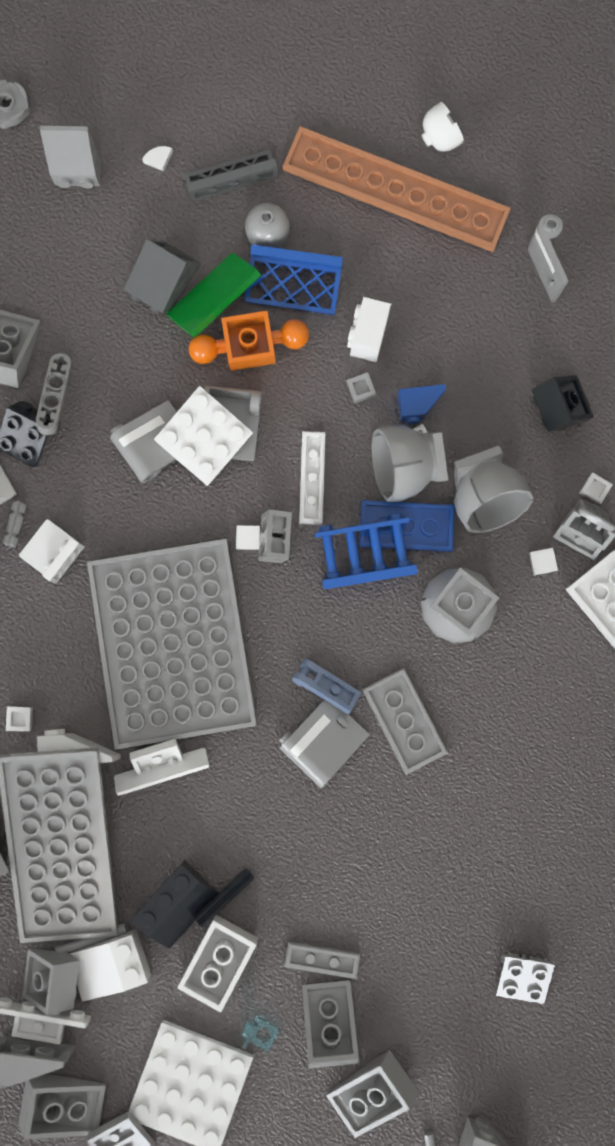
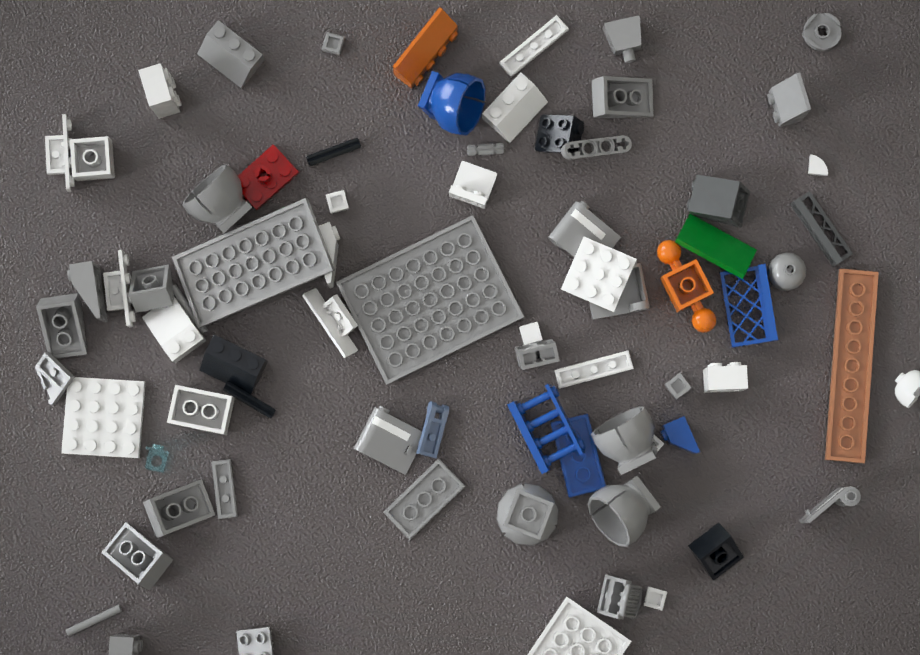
camera: 75 degrees right, 0 degrees up
(543, 561) = (583, 572): white tile -> none

